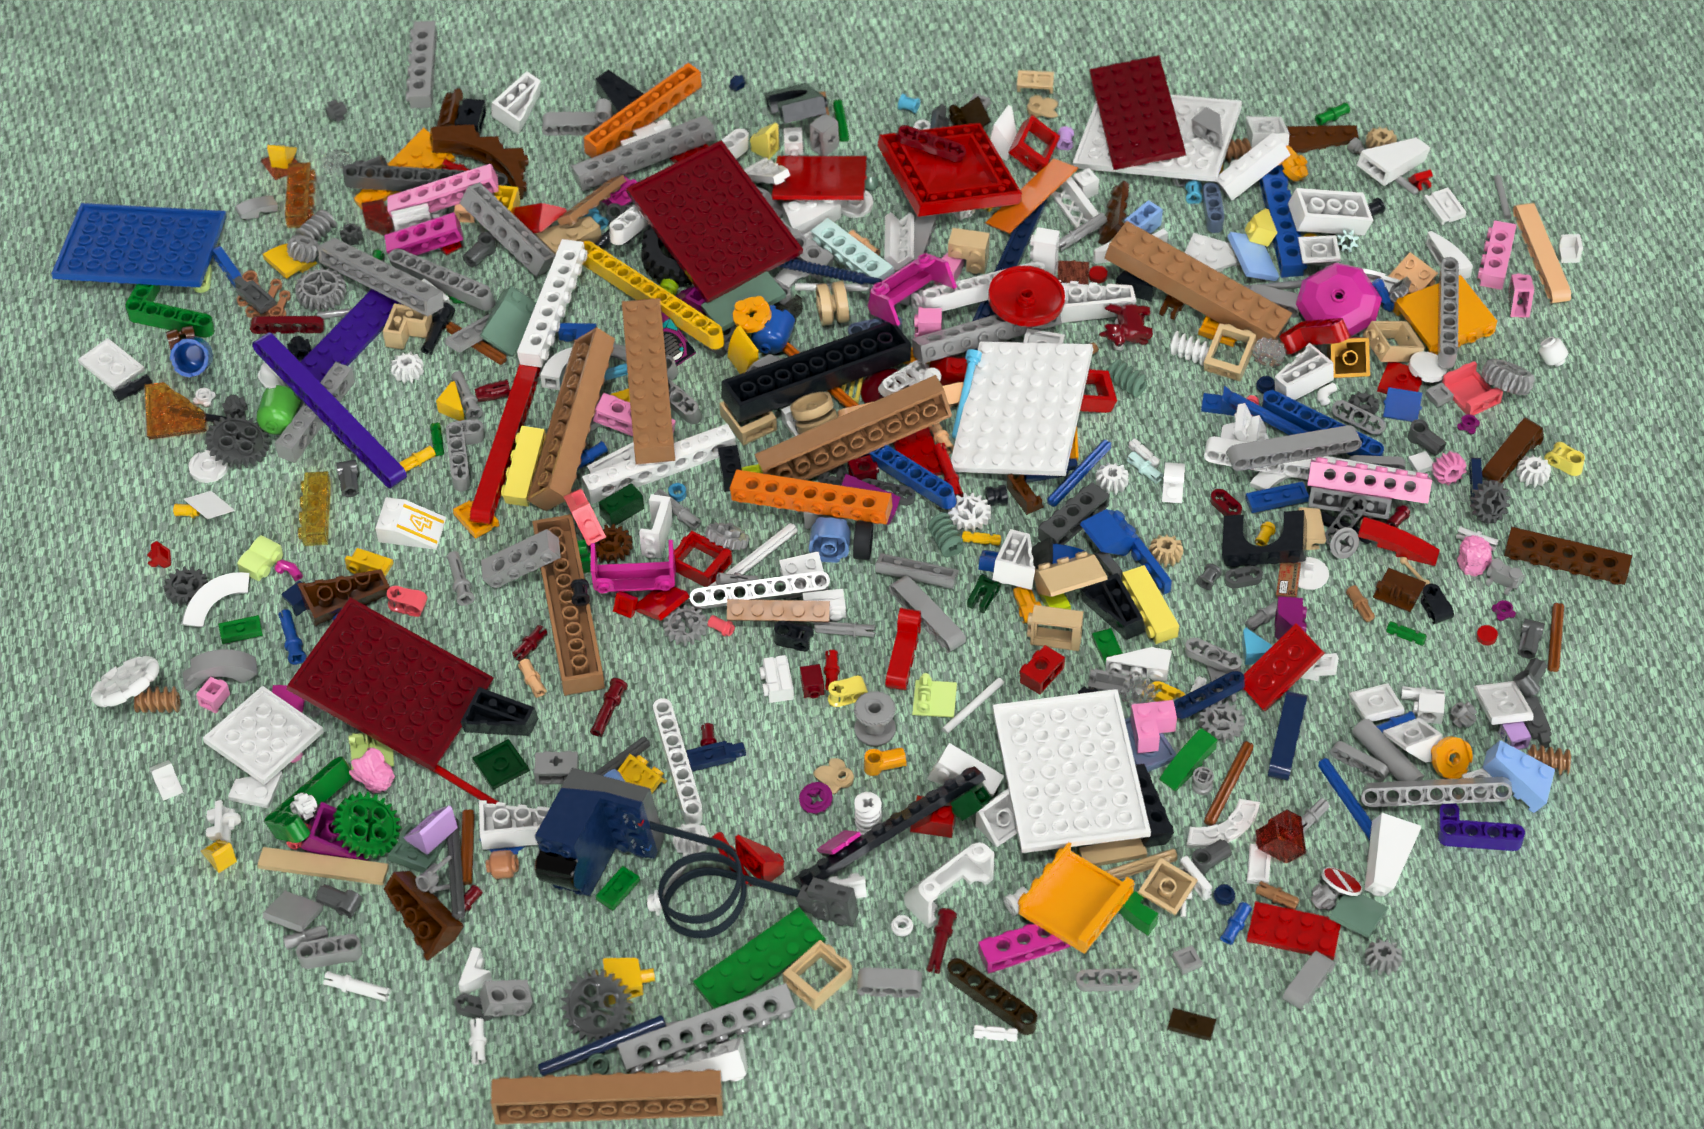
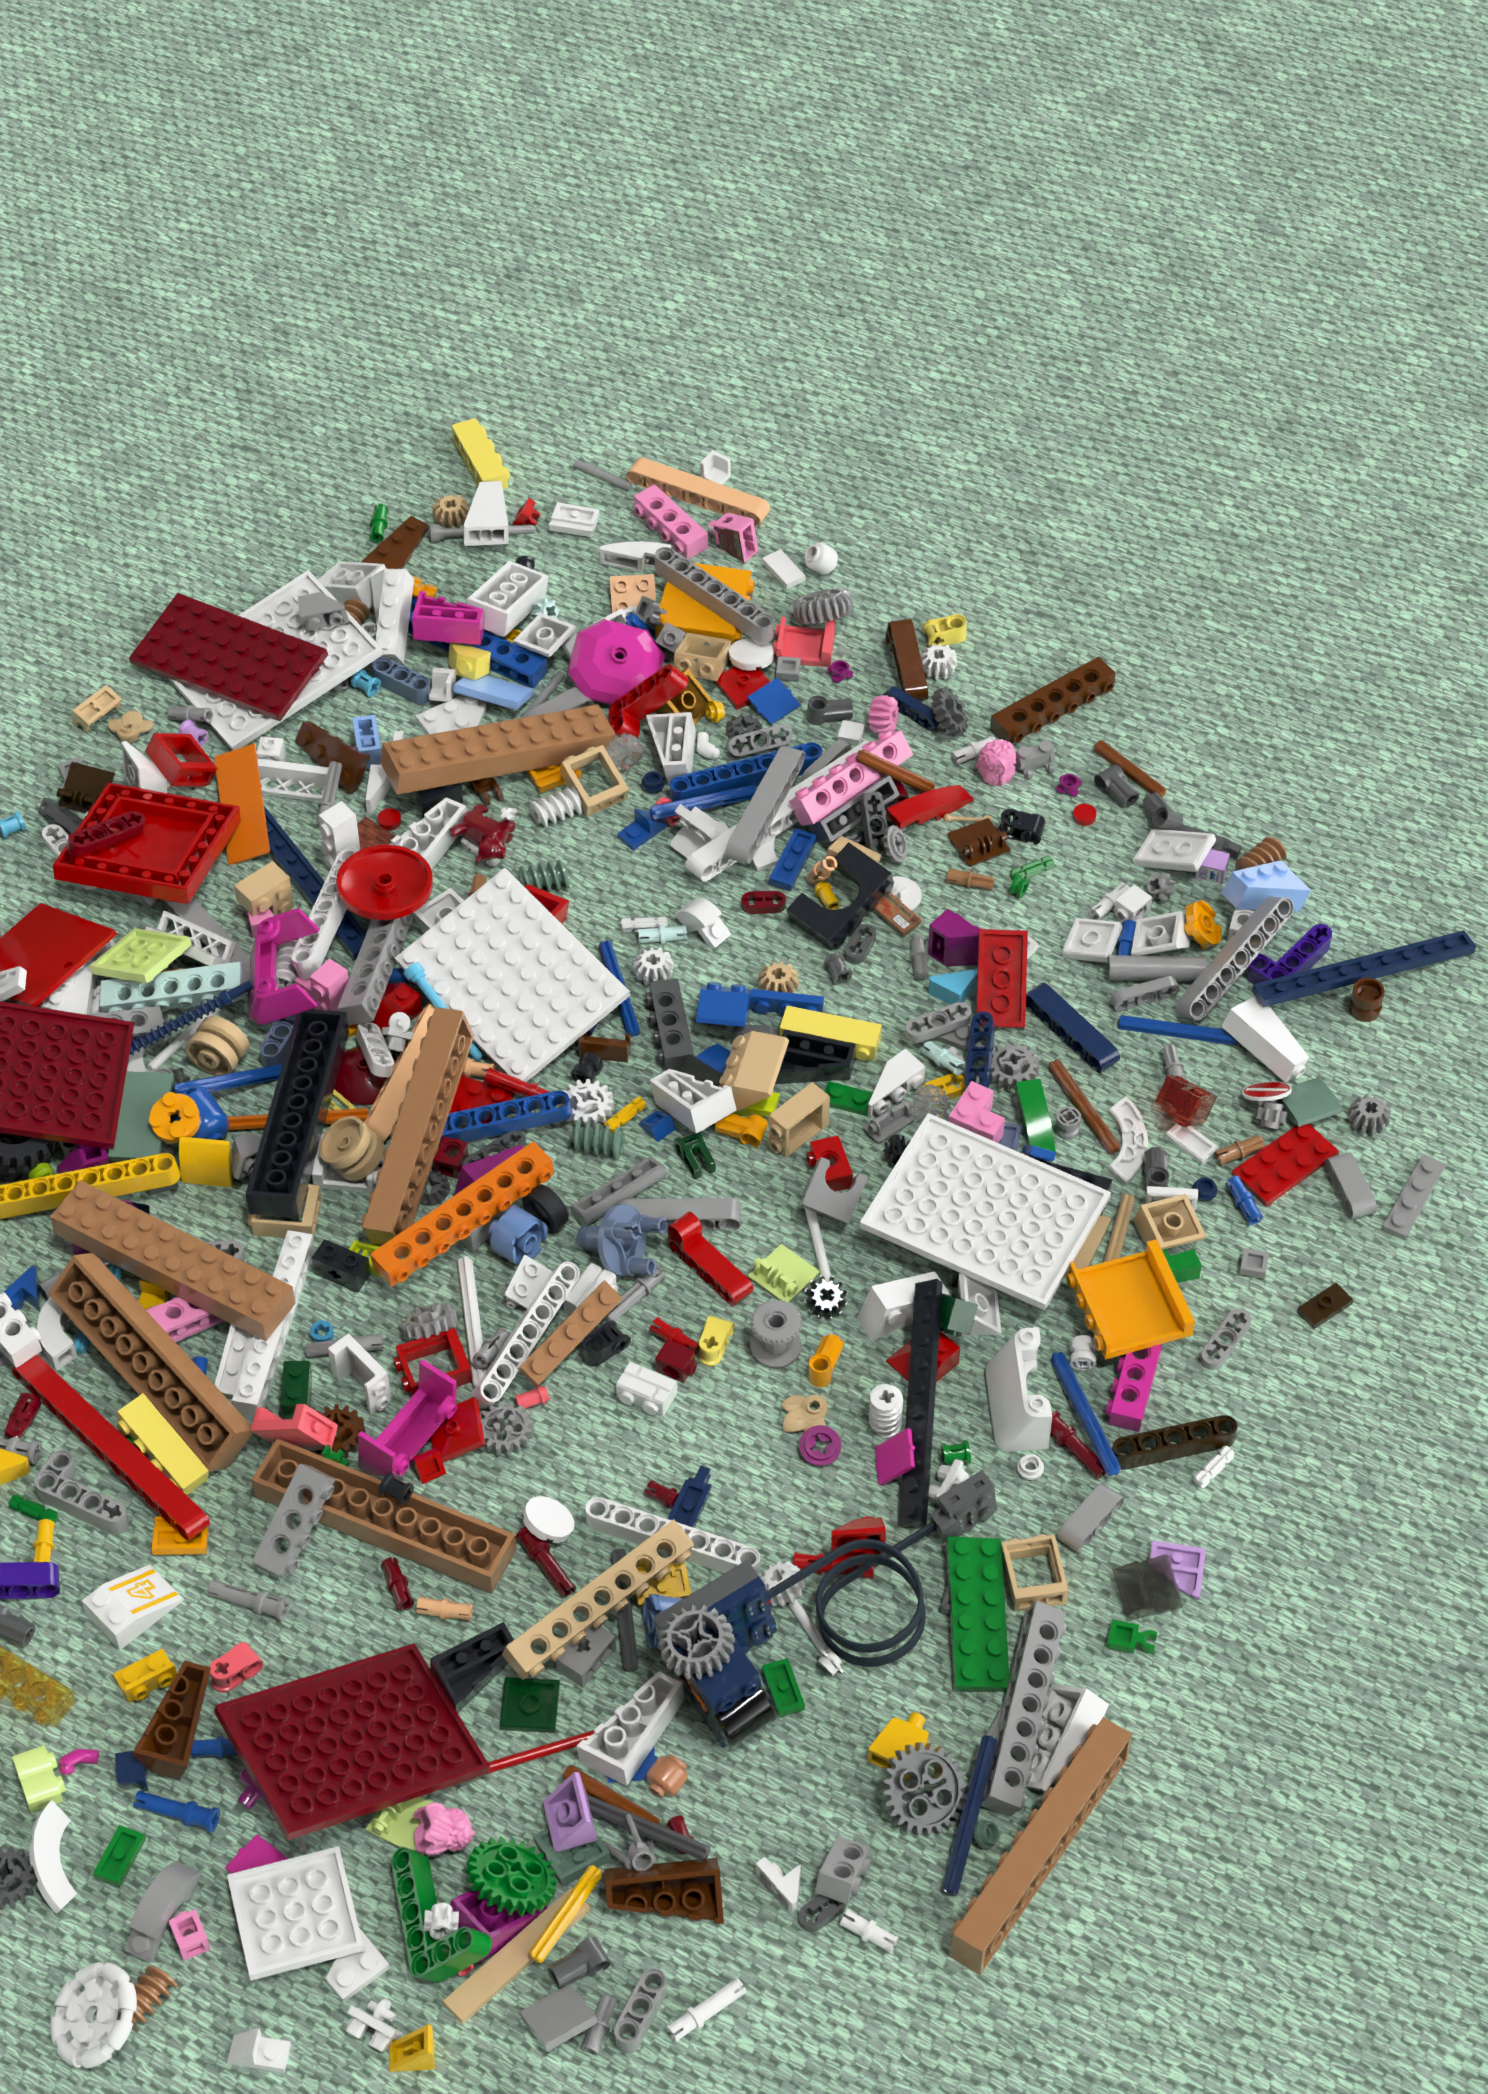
camera: 55 degrees left, 0 degrees up
(364, 870) = (565, 1914): none -> yellow axle
(518, 726) = (669, 1538): none -> tan brick
(576, 789) = (678, 1634): none -> light grey gear
(635, 687) = (548, 1519): none -> white tile
(808, 322) = (231, 1080): none -> blue axle
(813, 1059) = (1125, 1637): none -> green plate
(860, 221) = (140, 955): none -> yellowish green plate
(861, 1048) = (1147, 1587): none -> clear smoke slope
(872, 593) = (622, 1240): none -> sand blue piece
(874, 876) = (956, 1451): none -> green bush
(895, 1057) = (1186, 1565): none -> lavender wing
(927, 724) = (825, 1288): none -> gear
(969, 930) = (1085, 1414): none -> blue axle
(1004, 682) = (825, 1201): none -> light grey piece
(1078, 126) = (190, 712): none -> light grey pin
(1154, 775) = (1038, 1153): none -> blue tile
(1157, 326) = (508, 813): none -> white axle
(1189, 677) = (943, 1058): none -> light aqua pin
(1233, 224) = (442, 684): none -> white panel
(1271, 191) = (447, 622): none -> dark pink wedge
(1279, 512) = (821, 870): none -> light nougat pin
(1338, 1027) = (1413, 1197): none -> light grey plate
(1359, 379) = (715, 711): none -> yellow plate
(1381, 634) = (1019, 886): none -> green bush
(1391, 312) = (670, 637): none -> light grey brick
(1399, 501) = (895, 771): none -> dark orange axle
(1445, 123) = (479, 453): none -> light yellow brick
(1484, 896) = (1366, 999): none -> reddish brown wheel
(1510, 878) = (1367, 966): none -> dark blue plate
(1526, 340) = (783, 569): none -> white tile

